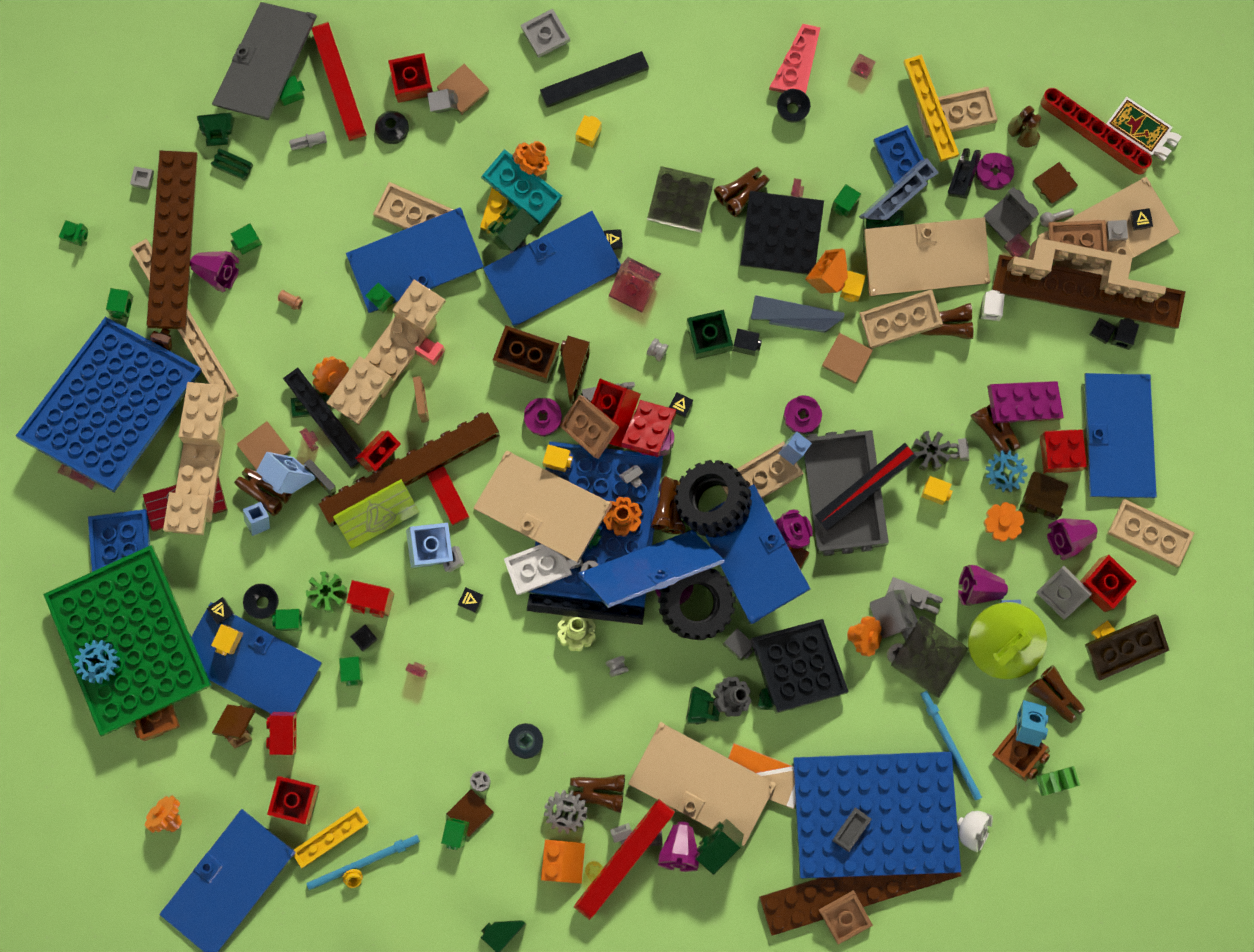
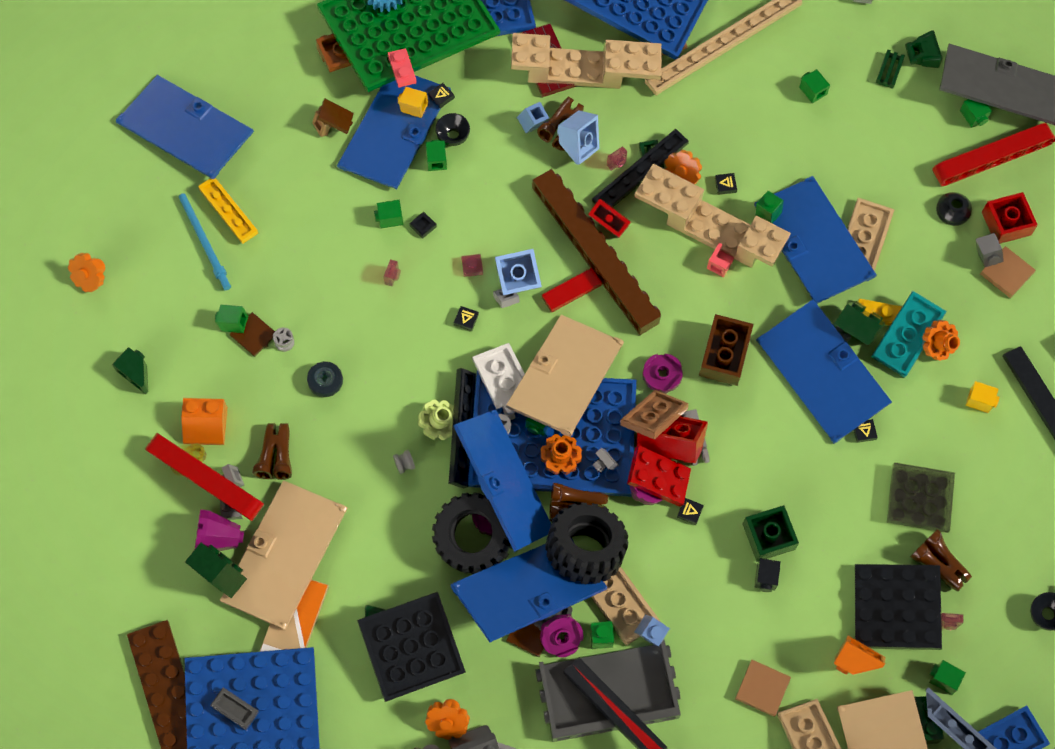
camera: 85 degrees right, 10 degrees down
(162, 339) = (703, 24): reddish brown tile -> none
(164, 815) = (245, 67): orange plant -> none
(172, 240) = (804, 22): reddish brown plate -> none
(189, 647) = (402, 68): none -> coral plate
(216, 268) = (779, 62): magenta cone -> none
(259, 442) = (611, 120): medium nougat tile -> none
(282, 733) = (325, 158): red brick -> none
(291, 300) = (755, 135): nougat pin -> none
(293, 800) = (261, 172): red brick -> none
(308, 140) = (925, 133): light grey axle -> none
(320, 477) = (579, 171): dark grey tile -> none
(322, 588) = (474, 187): bright green gear -> none
(345, 337) = (726, 183): none -> black tile
(352, 878) = (188, 232): yellow plate -> none
(370, 598) = (459, 222): red brick -> none
(376, 514) = (546, 222): lime tile -> none
(413, 591) = (472, 265): none -> clear pink plate
(421, 399) = (666, 252): medium nougat tile -> none
(557, 458) = (617, 385): yellow brick -> none
(567, 803) = (253, 420): light grey gear -> none
(575, 357) = (719, 395): reddish brown slope -> none
(634, 284) = (818, 454): clear pink slope -> none
(657, 349) = (747, 482): light grey wheel -> none
(699, 706) = (364, 546): dark green piece -> none
(732, 696) = (376, 579): dark grey plant -> none
(739, 645) = (432, 582): dark grey brick -> none
(794, 315) = (804, 625): sand blue wedge -> none
(795, 493) = (602, 635): none -> green brick
(812, 409) = (702, 634): magenta plate -> none
(845, 917) = (143, 710): medium nougat tile -> none
(853, 287) = (846, 688): yellow brick -> none

